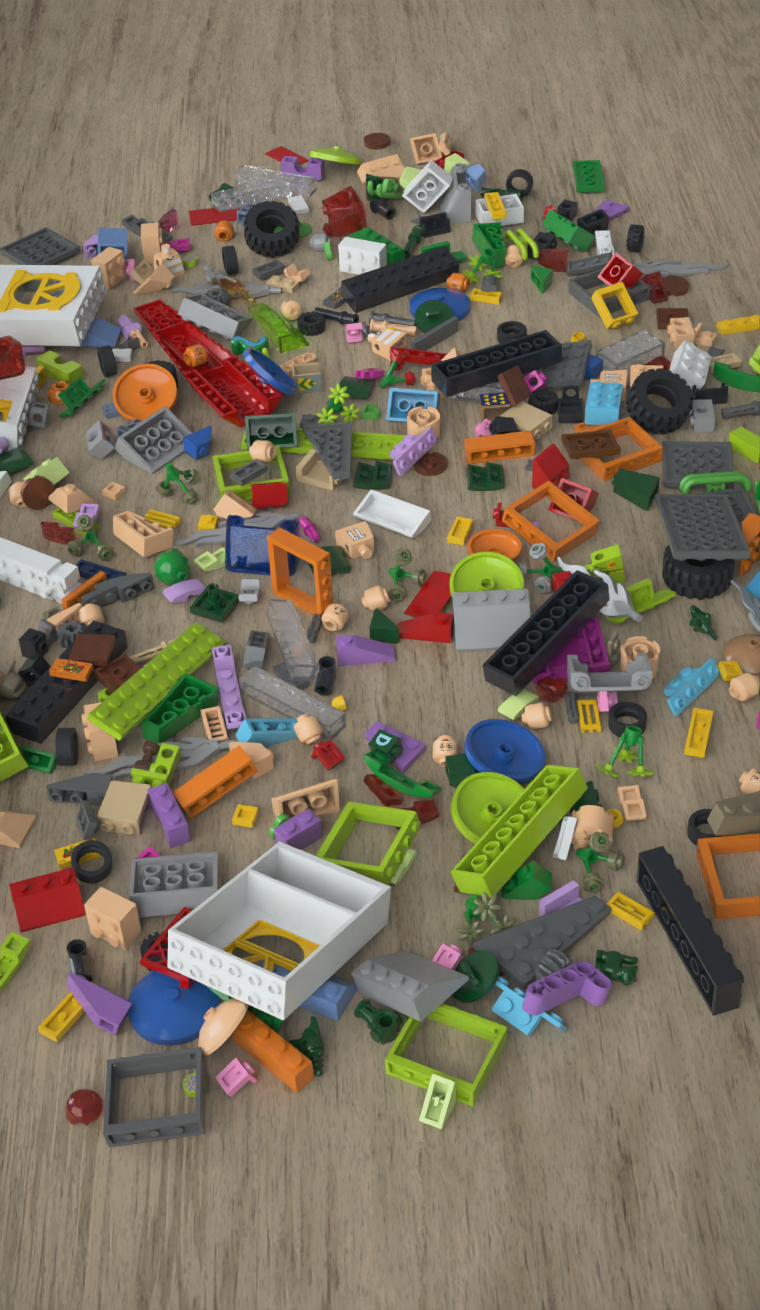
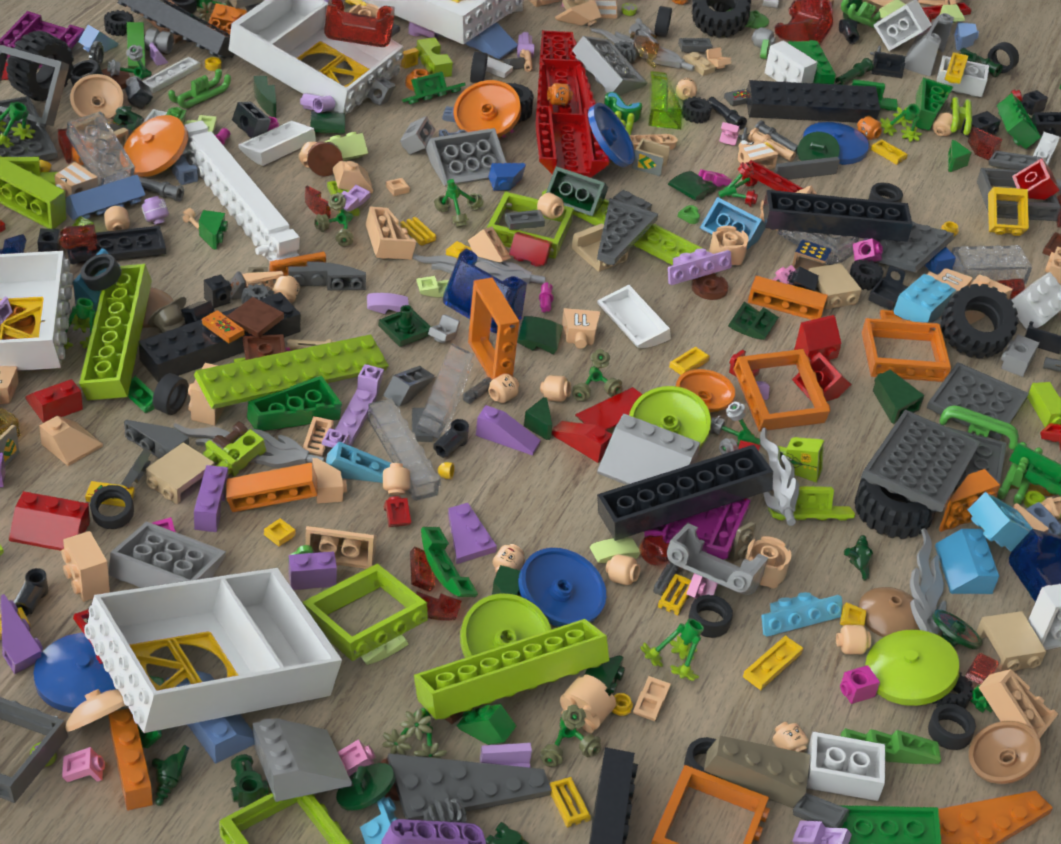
camera: 20 degrees right, 0 degrees up
(89, 569) = (319, 244): dark blue tile -> none
(172, 567) = (389, 276): green cylinder -> none
(334, 405) = (658, 193): lime plant -> none
(372, 477) = (644, 274): dark green slope -> none
(387, 745) = (453, 529): dark green brick -> none
(489, 283) = (900, 141): dark grey plate -> none
(514, 385) = (840, 244): copper tile -> none
(564, 838) = (552, 698): white tile -> none
(590, 444) = (875, 333): reddish brown plate -> none

